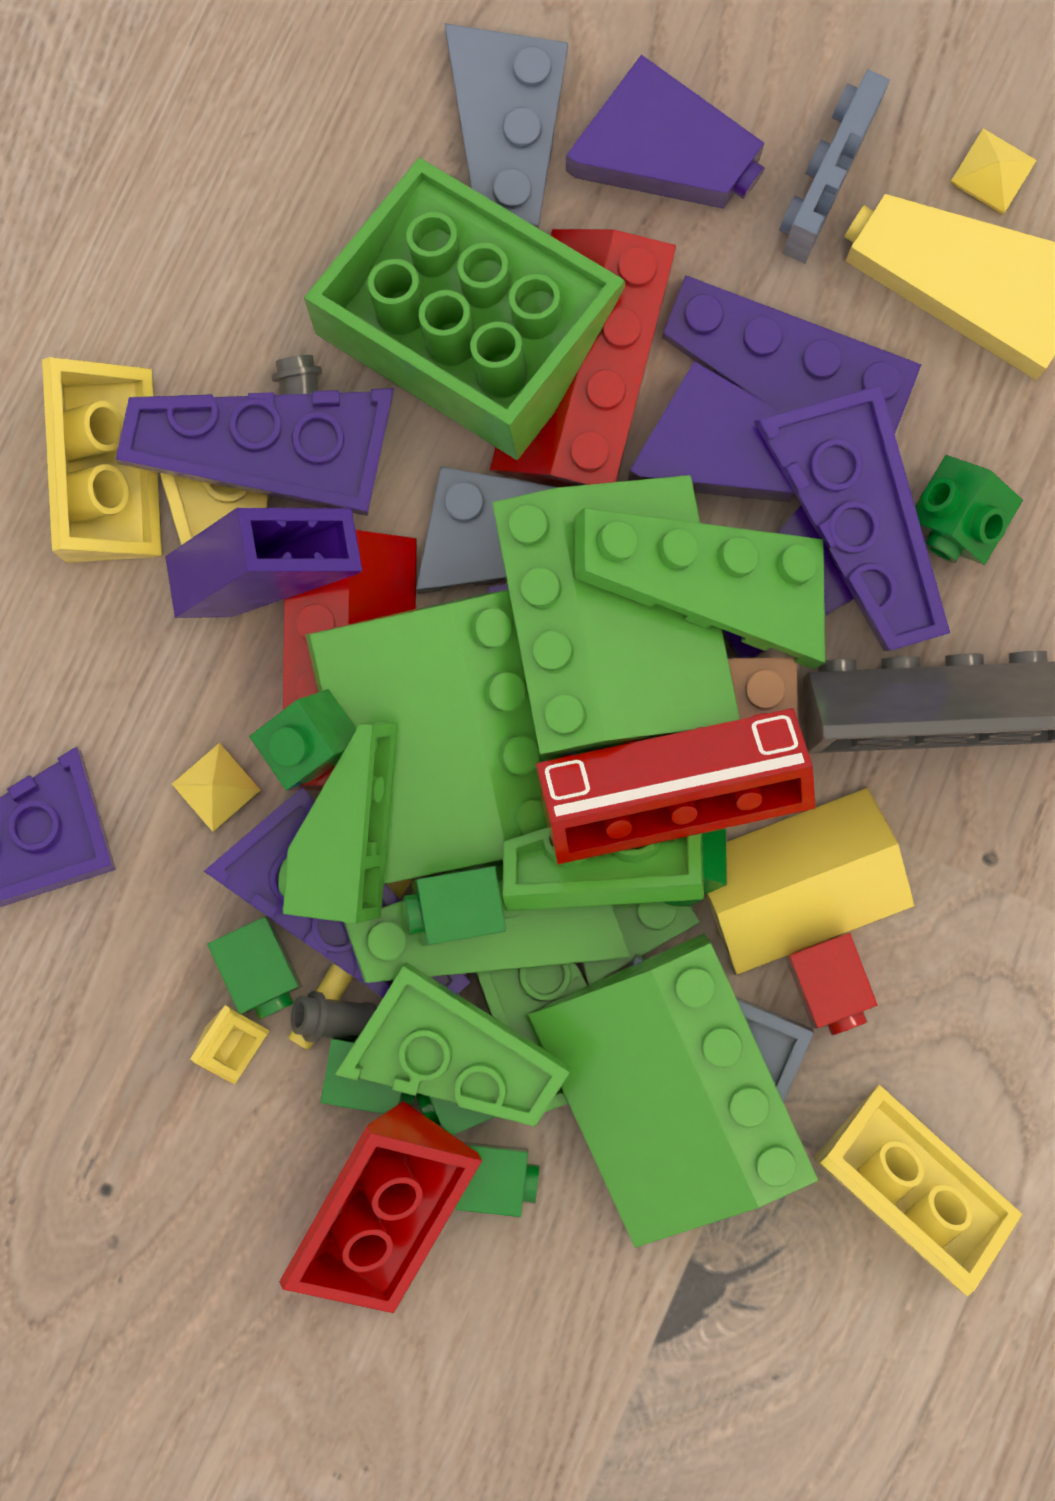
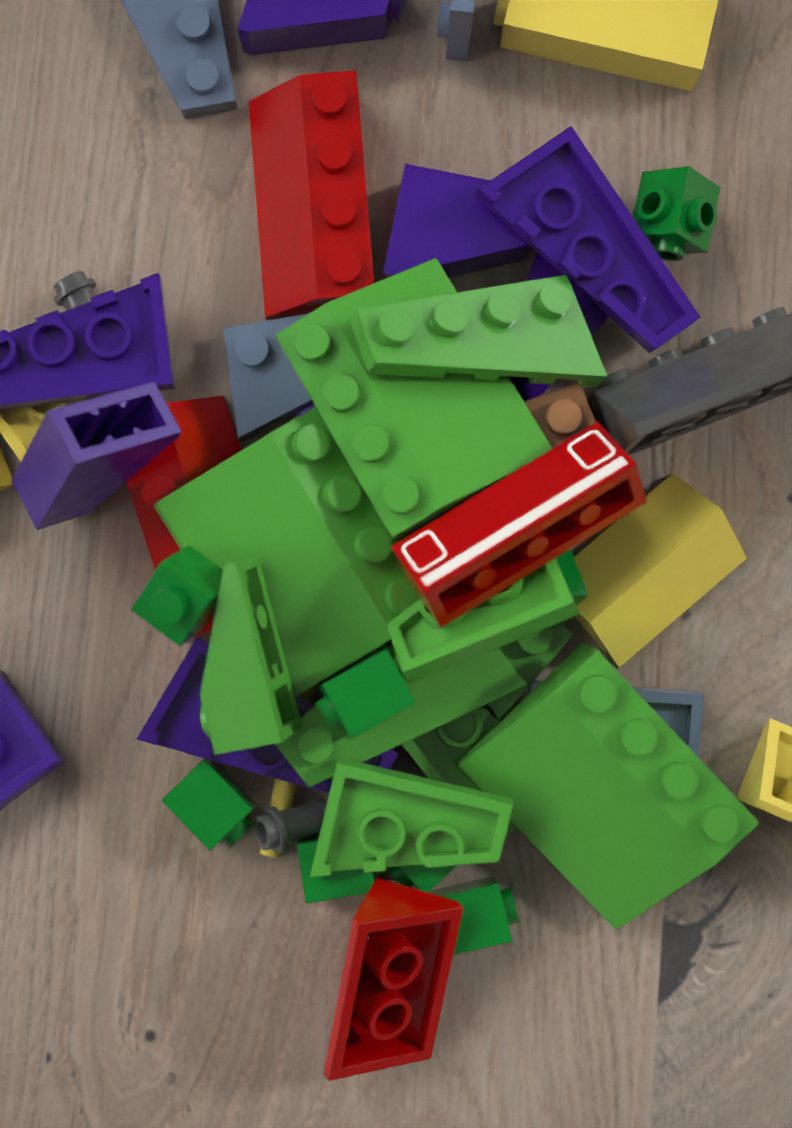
camera: 20 degrees left, 0 degrees up
(216, 787) = (127, 662): light yellow slope -> none
(228, 1044) = (211, 877): light yellow slope -> none
(464, 306) = (195, 183): bright green slope -> none
(779, 354) = (469, 137): dark purple wing -> none
(832, 984) = (704, 647): red brick -> none

